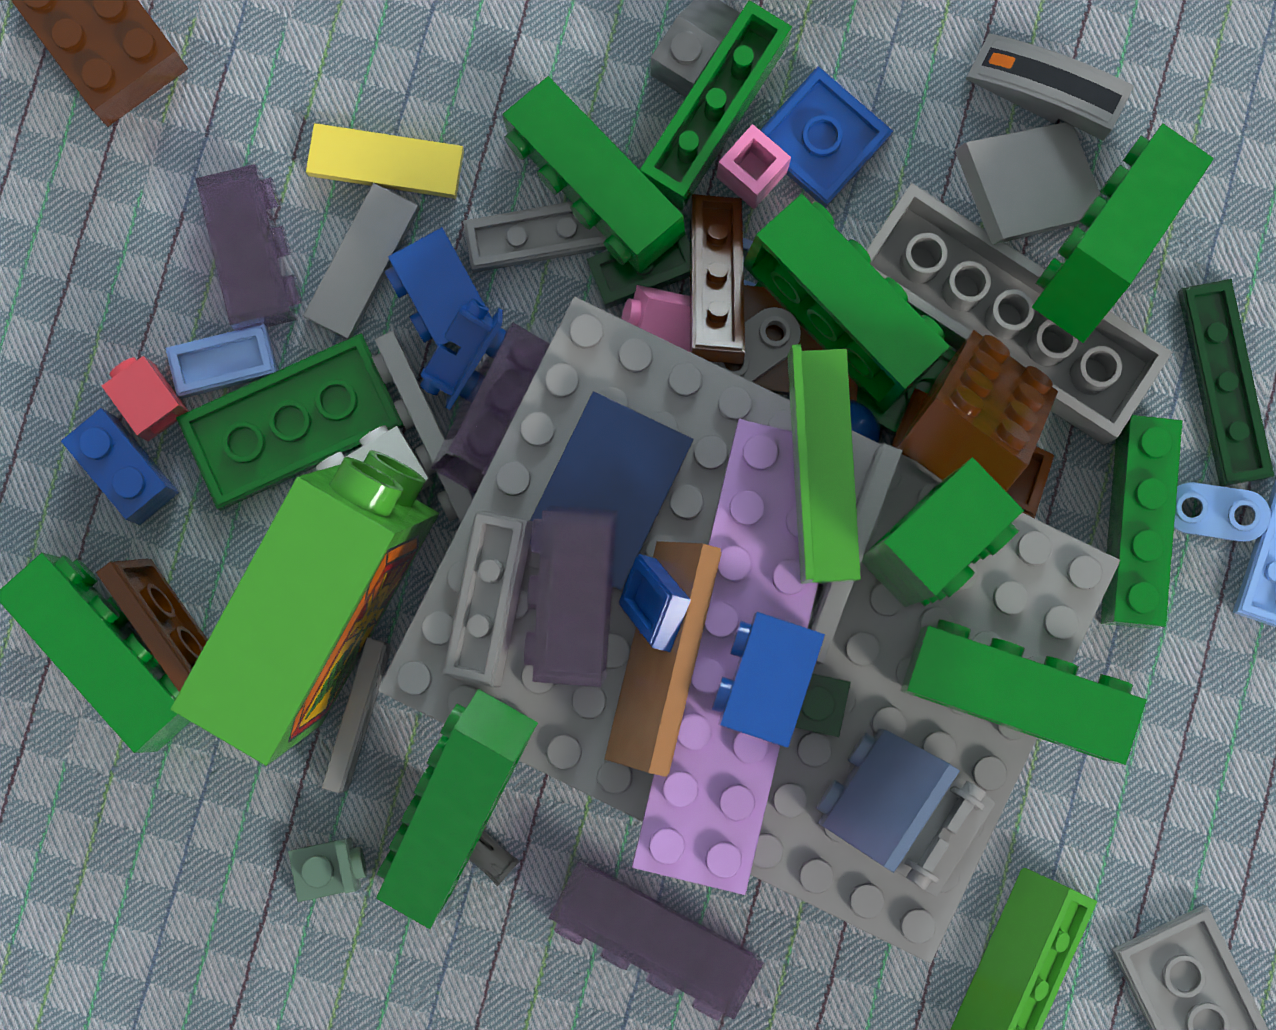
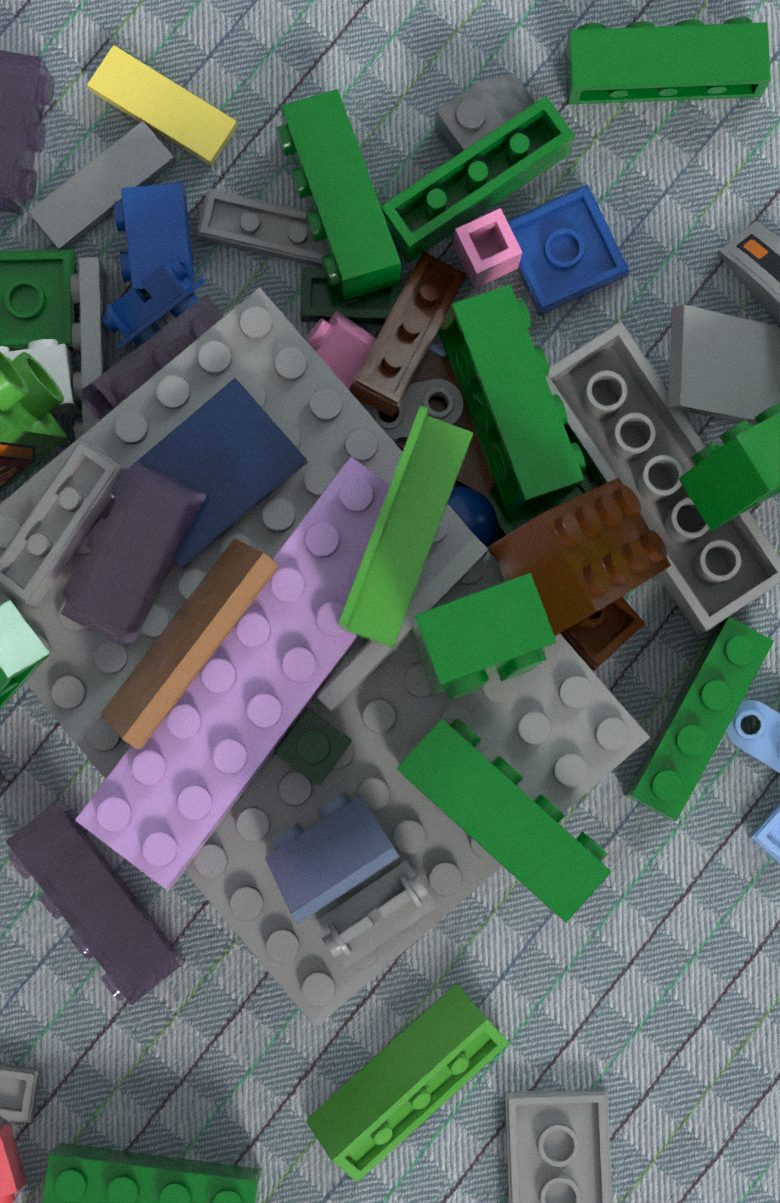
camera: 20 degrees right, 0 degrees up
(654, 602) = (201, 589): blue tile -> none
(769, 678) = (267, 701): blue brick -> none

